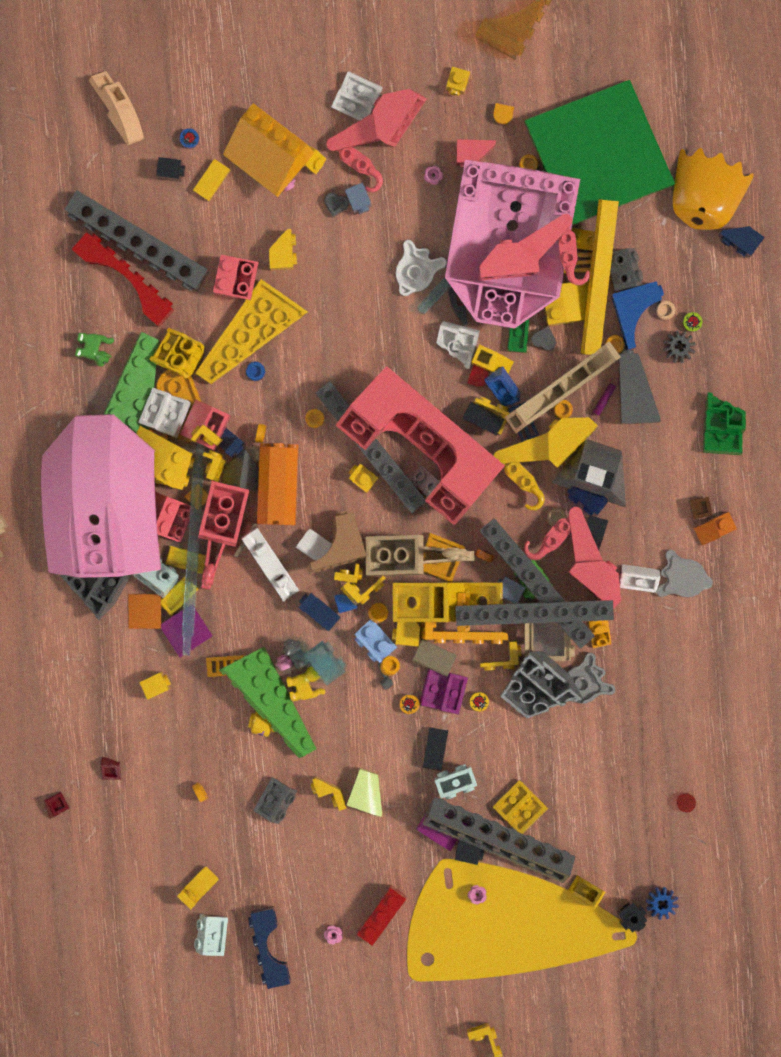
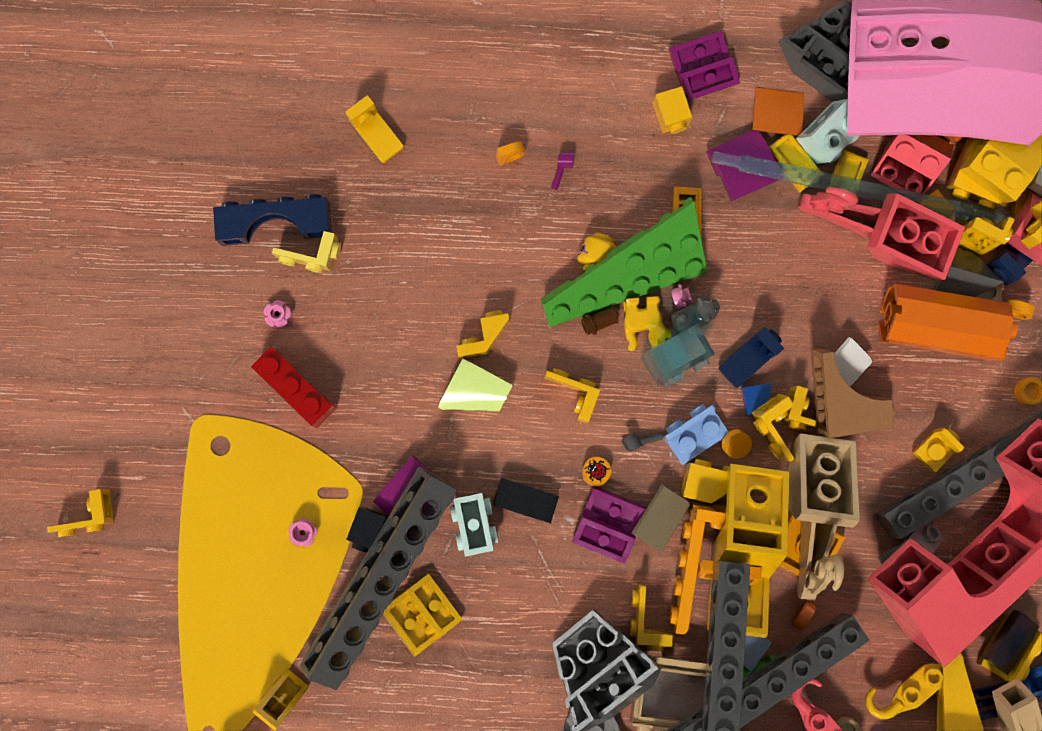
camera: 100 degrees right, 5 degrees down
(110, 769) = (560, 33): dark red slope -> none
(119, 666) = (704, 65): none -> magenta slope
(199, 753) = (565, 160): none -> magenta hand
(211, 935) = (303, 140): light aqua bracket -> none
(246, 527) = (866, 264): slope -> none
(269, 563) = (829, 295): white hinge -> none
(275, 801) = (482, 257): dark grey bracket -> none
(285, 906) = (327, 252): none -> light yellow bracket
(307, 715) = (600, 320): none -> reddish brown pin
(365, 717) = (584, 405): none -> yellow bracket
(389, 666) = (656, 450): light orange tile -> none
(479, 701) = (586, 575): tile -> none

